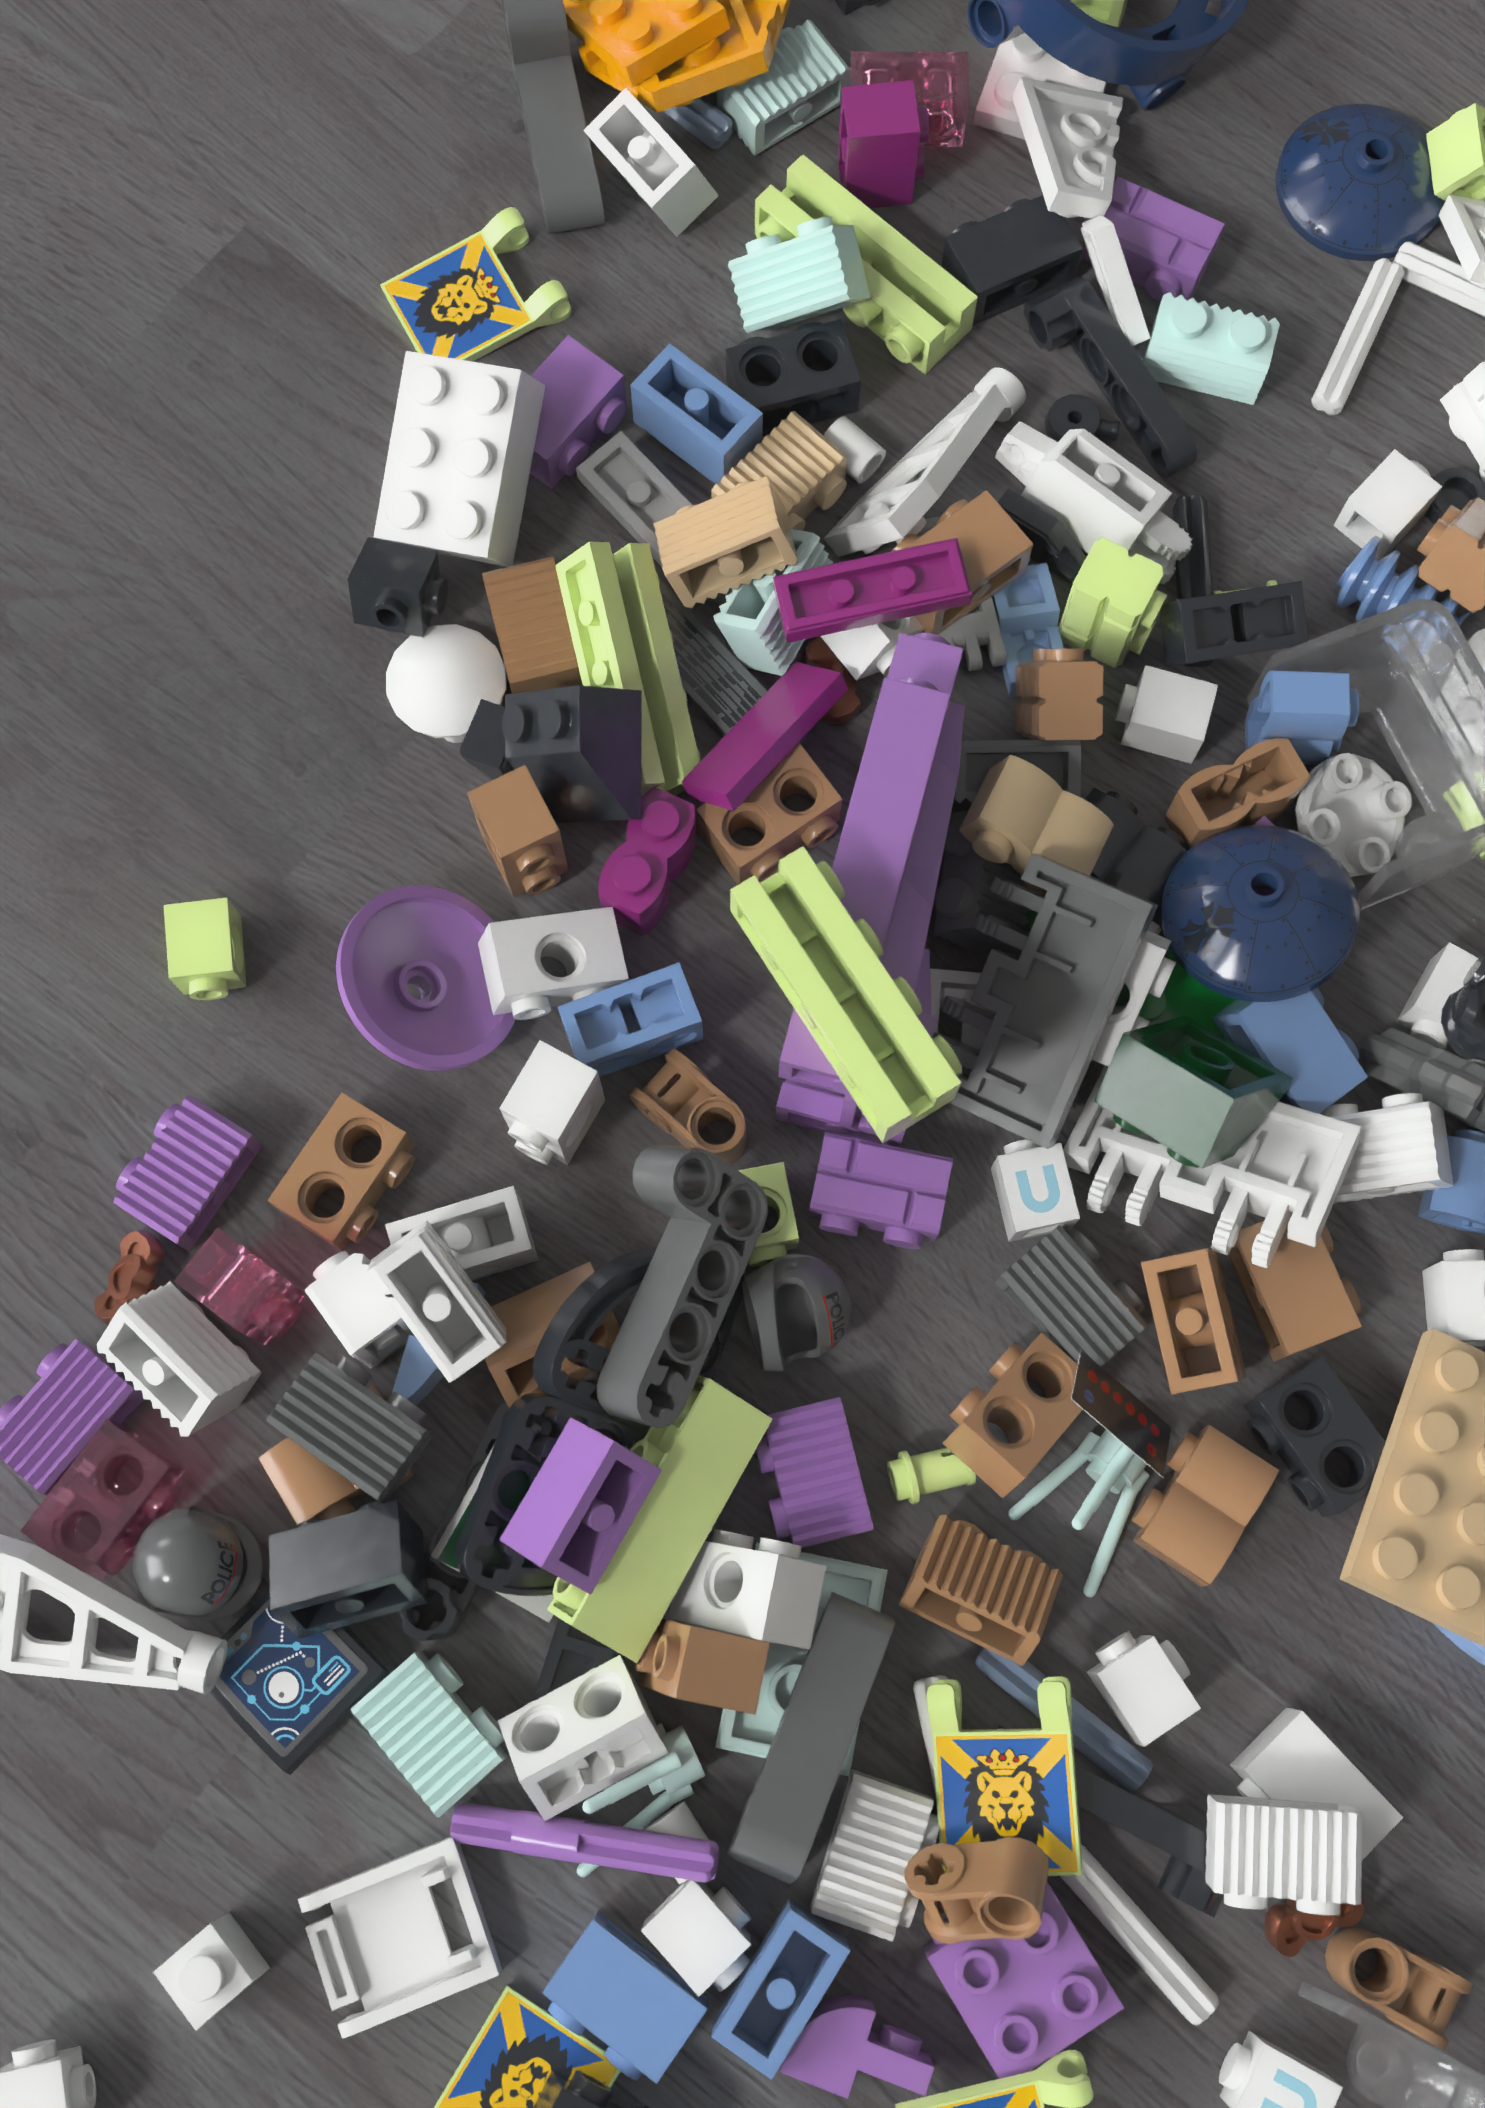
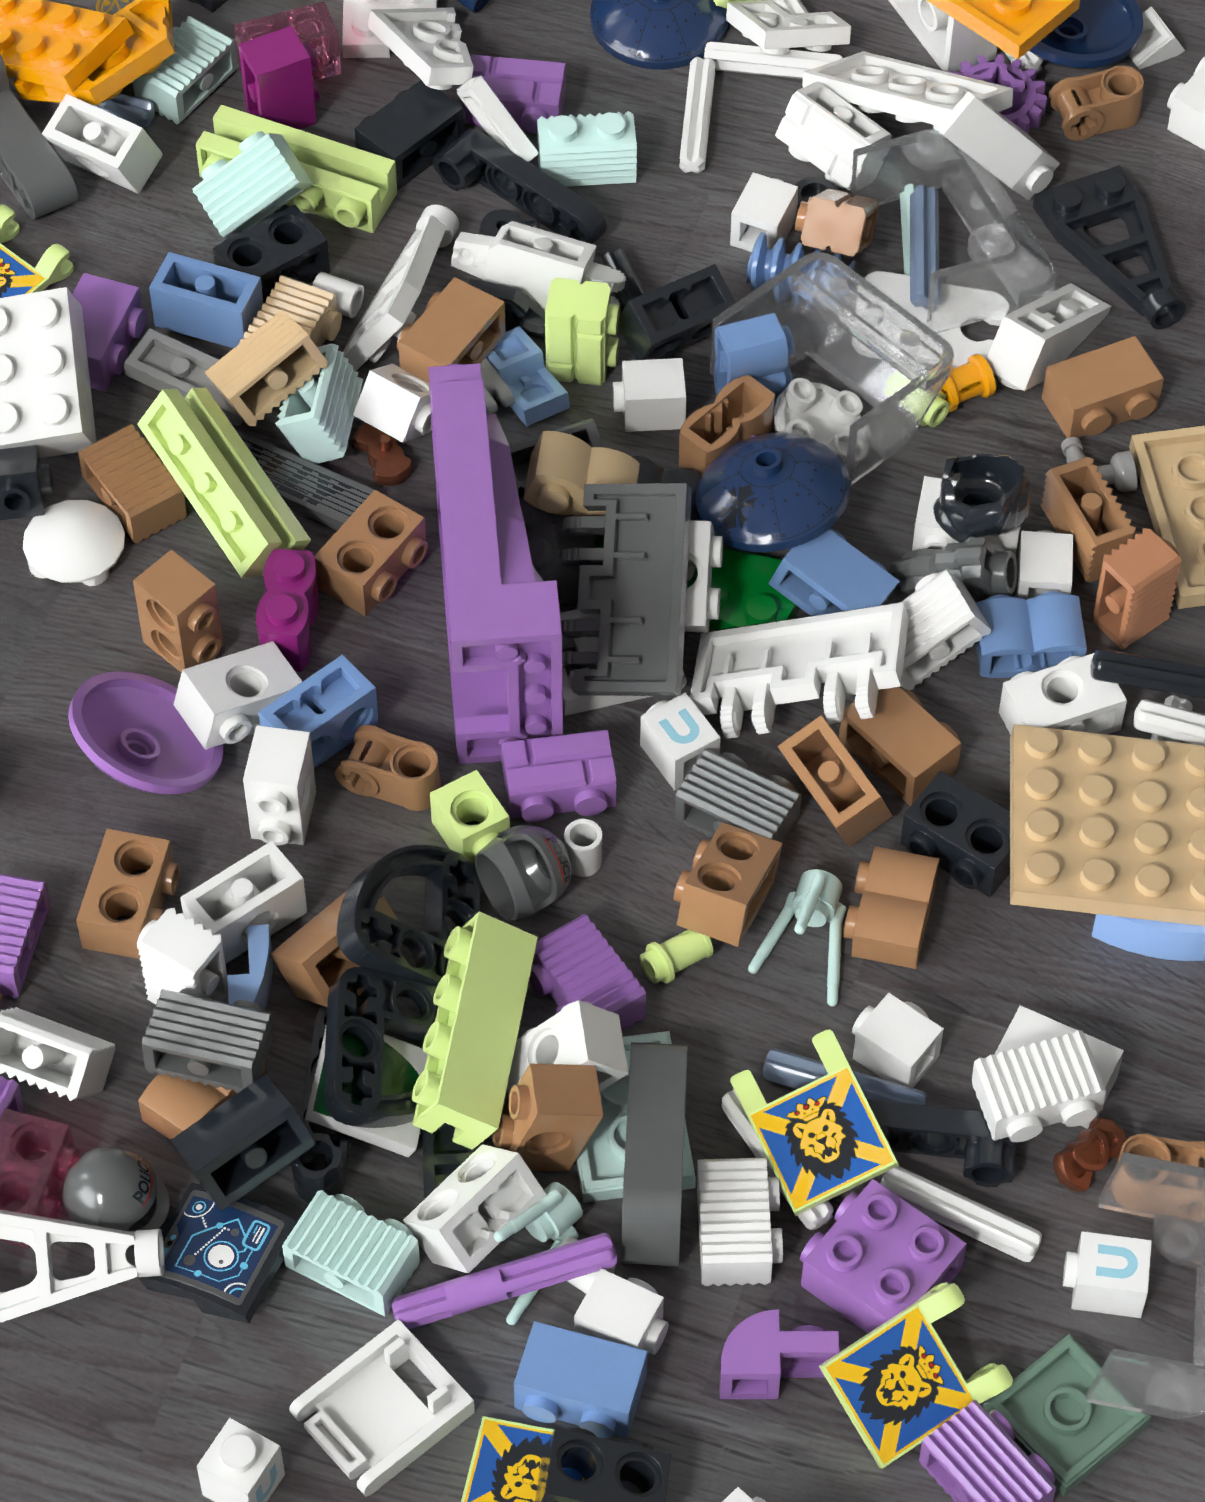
camera: 20 degrees left, 20 degrees down
(242, 1288) = (80, 982): clear pink brick -> none
(438, 1301) = (247, 916): white brick -> none
(485, 741) = (130, 557): black slope -> none
(579, 749) = (212, 528): black slope -> none
(580, 1505) = (412, 1020): medium lavender brick -> none
(688, 1283) = (436, 851): dark grey beam -> none
(764, 736) = (347, 493): magenta tile -> none
(780, 1989) = (698, 1323): medium blue brick -> none
(846, 995) = (483, 577): yellowish green brick -> none
(872, 590) = (392, 363): magenta tile -> none
(883, 1278) = (584, 845): none -> white hinge
(982, 1589) = (745, 1012): medium nougat brick -> none
(987, 1894) = (818, 1196): medium nougat piece -> none
(1059, 696) = (564, 392): medium nougat brick -> none
(1121, 1413) = (804, 855): black sticker -> none
(1189, 1090) = (765, 621): slope -> none

